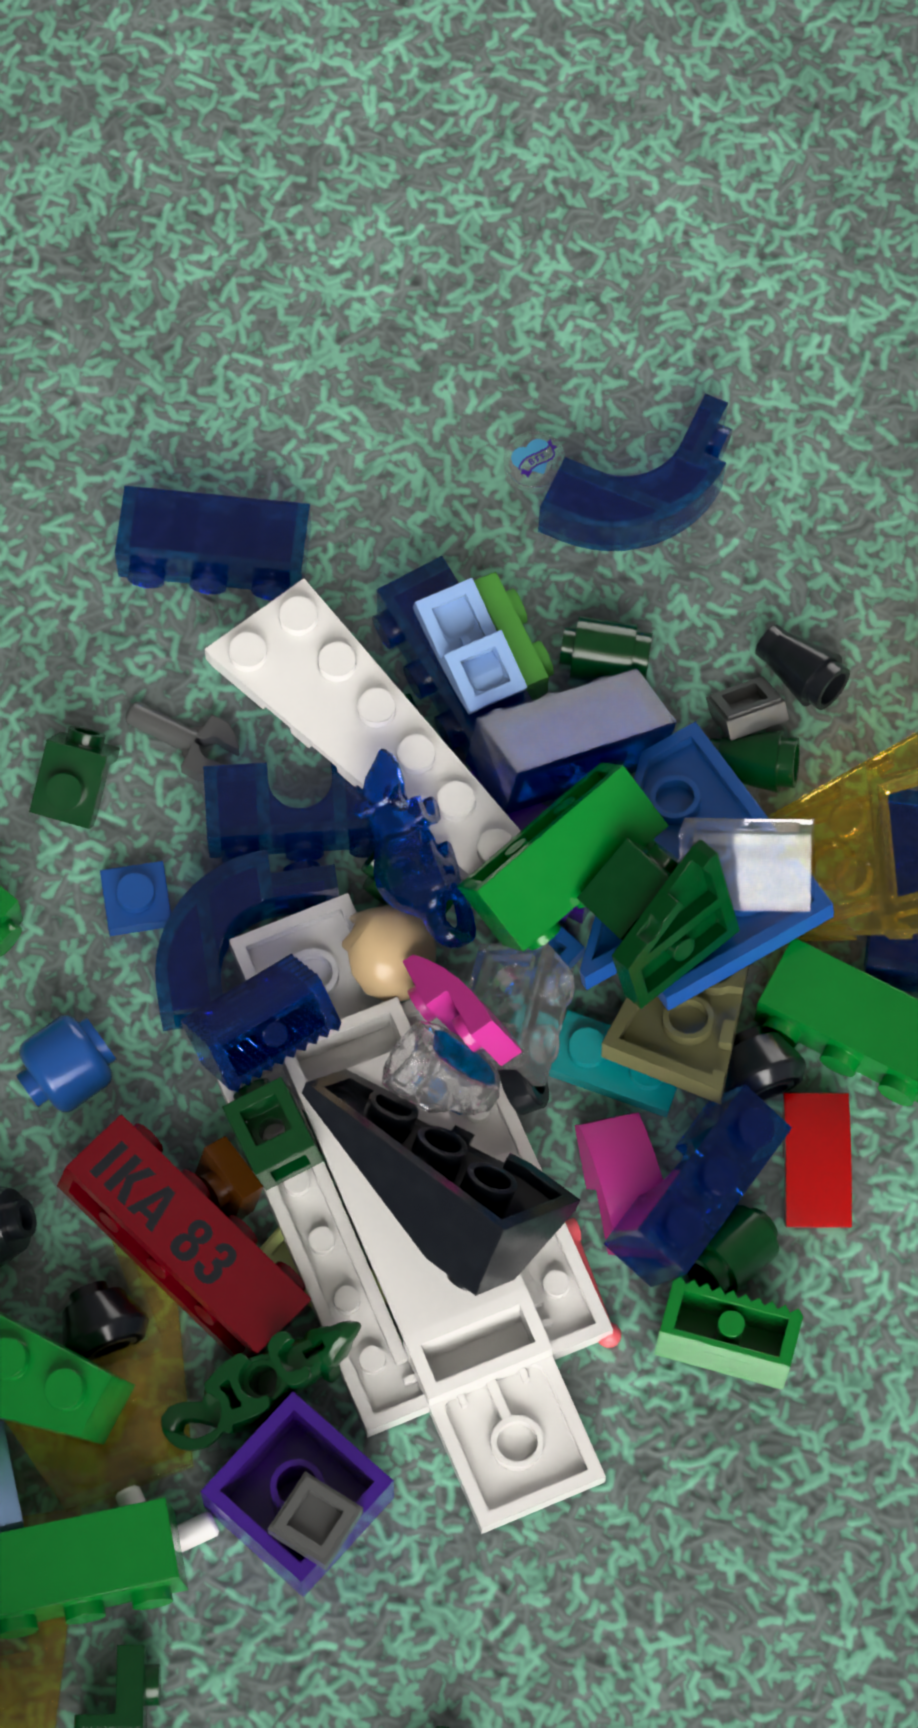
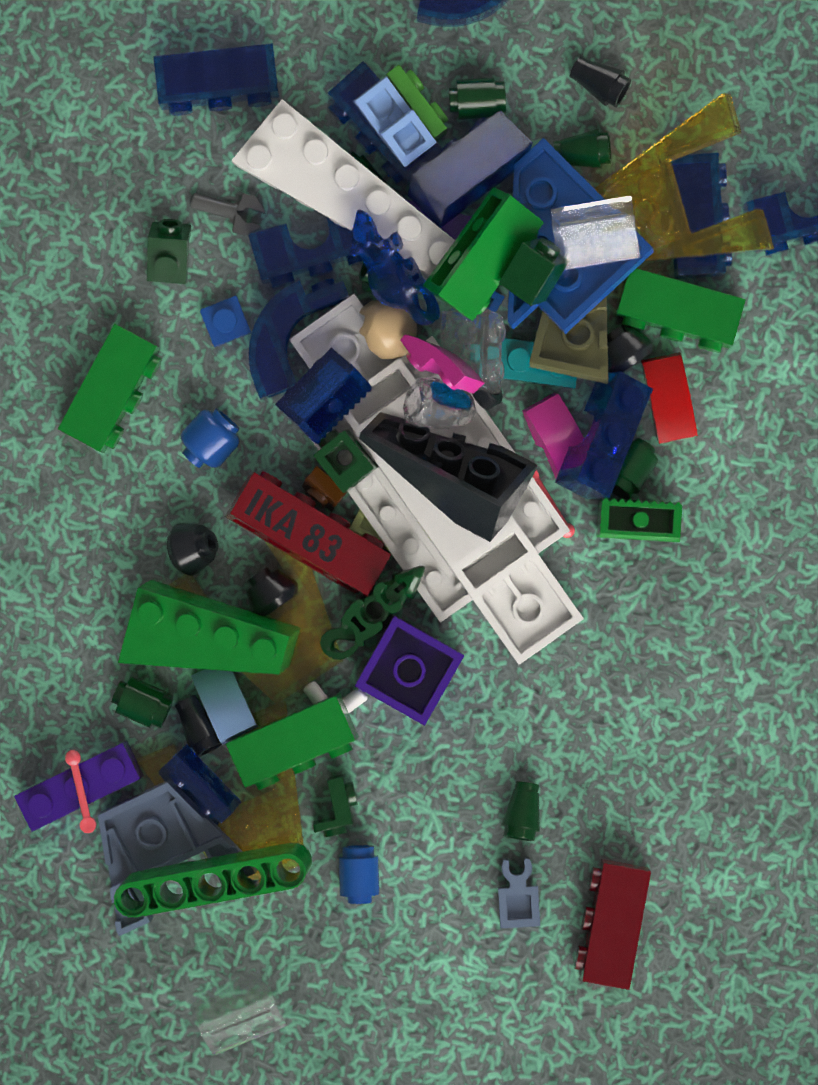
camera: 15 degrees left, 20 degrees up
(315, 1520) = (425, 690): dark grey tile -> none
(678, 927) = (564, 291): dark green wing -> none
(747, 708) = (572, 117): dark grey tile -> none

